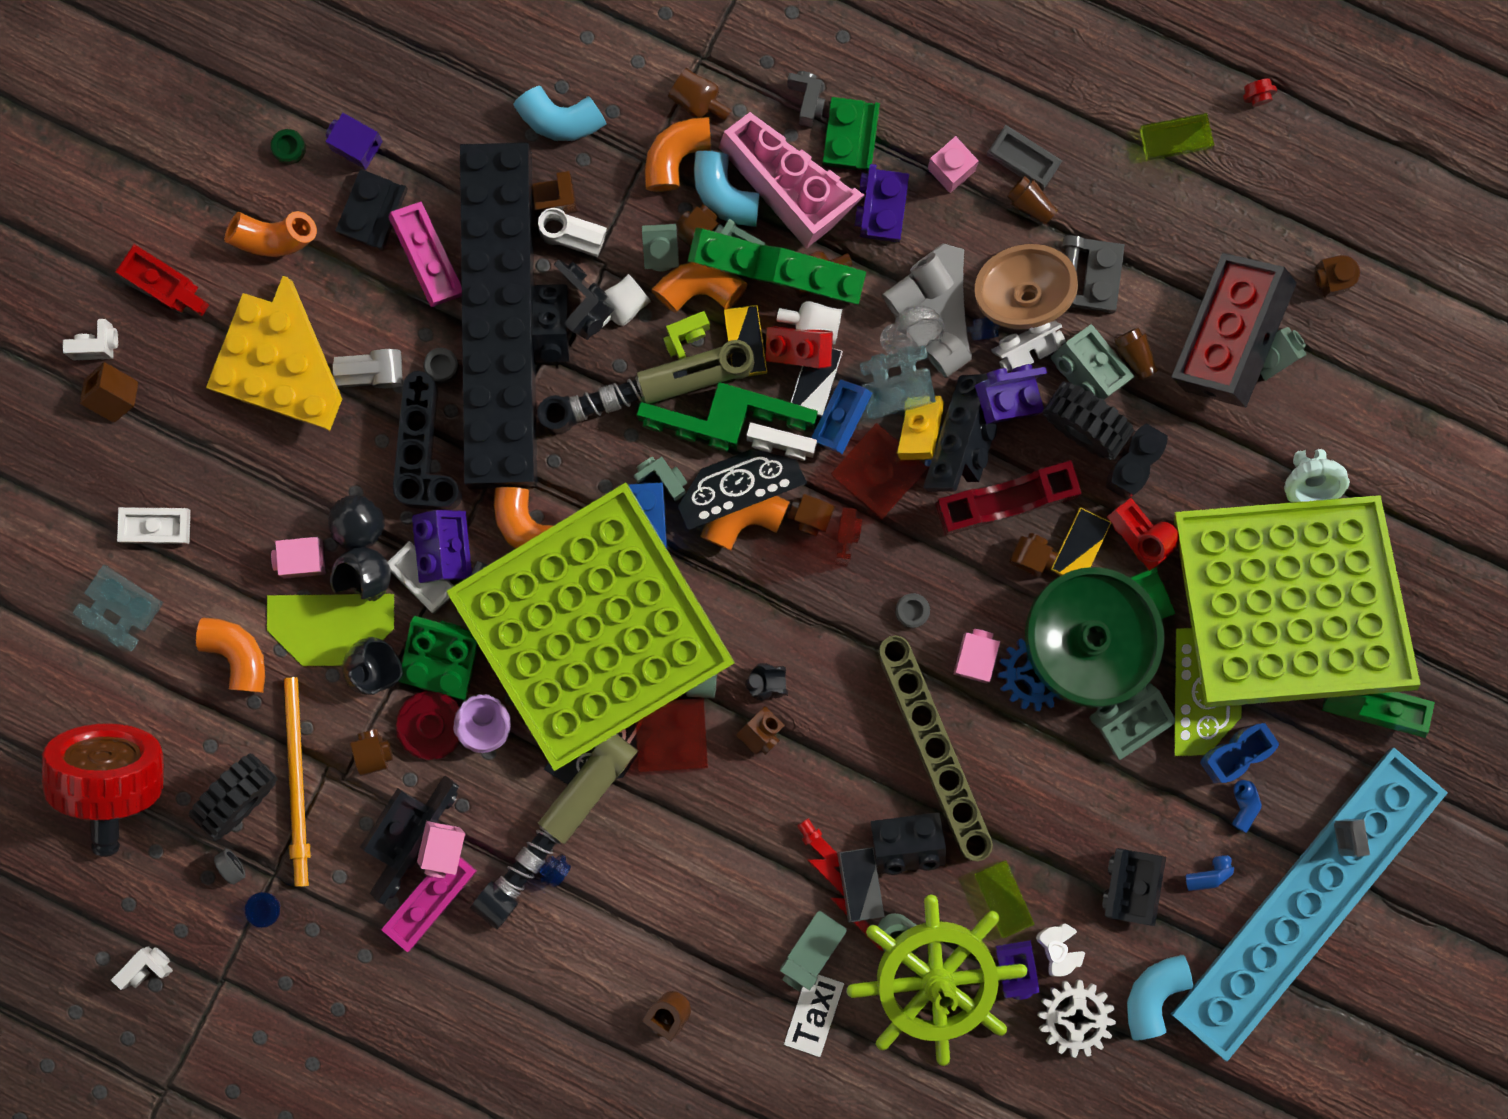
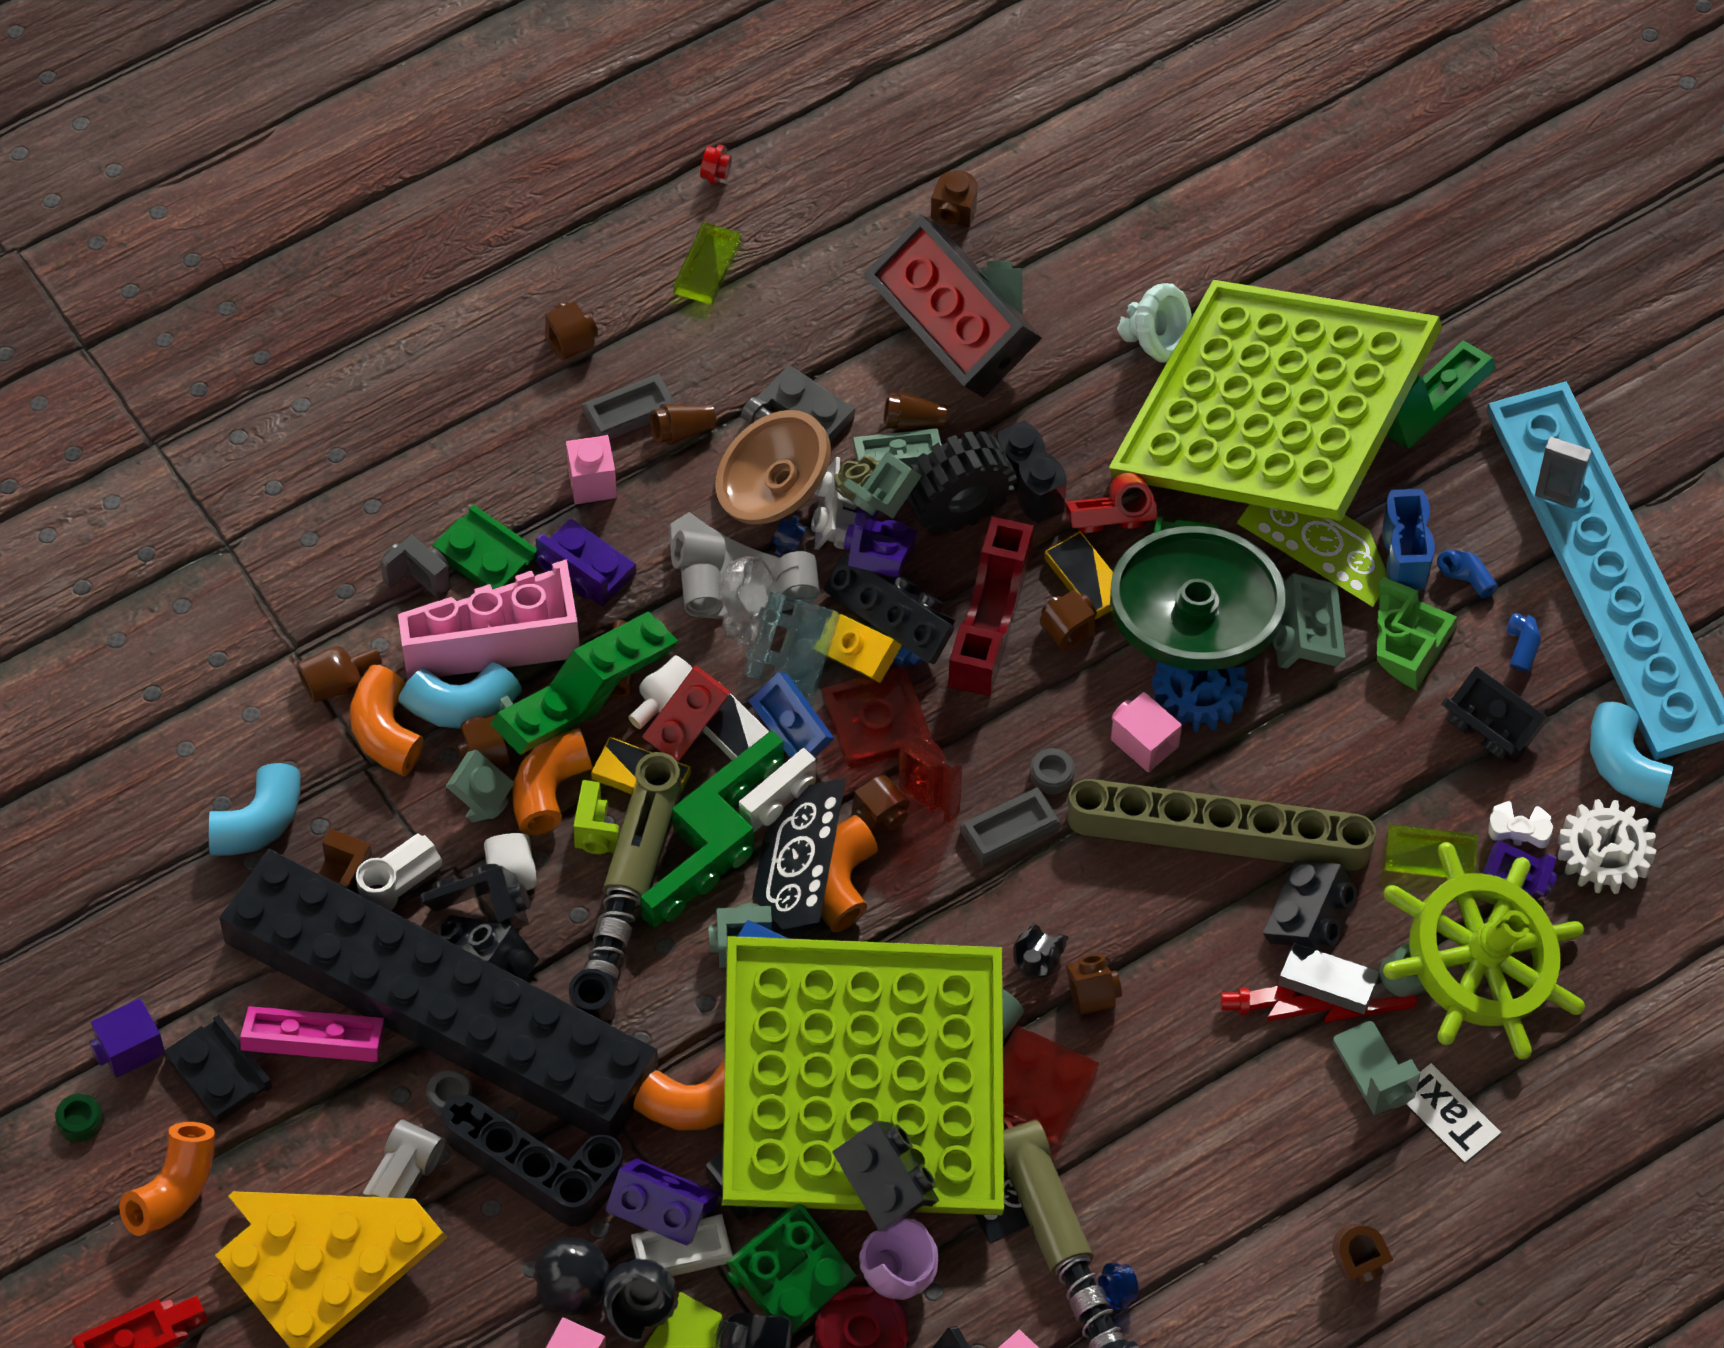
camera: 60 degrees left, 25 degrees down
(523, 686) = (886, 1173): none -> black bracket
(853, 606) = (1009, 826): none -> dark grey tile
(1042, 376) = (886, 487): none -> sand green bracket
(1049, 351) = (857, 472): none -> olive plate
(1057, 79) = (569, 330): none -> reddish brown plate
(1169, 792) = (1409, 633): none -> bright green slope

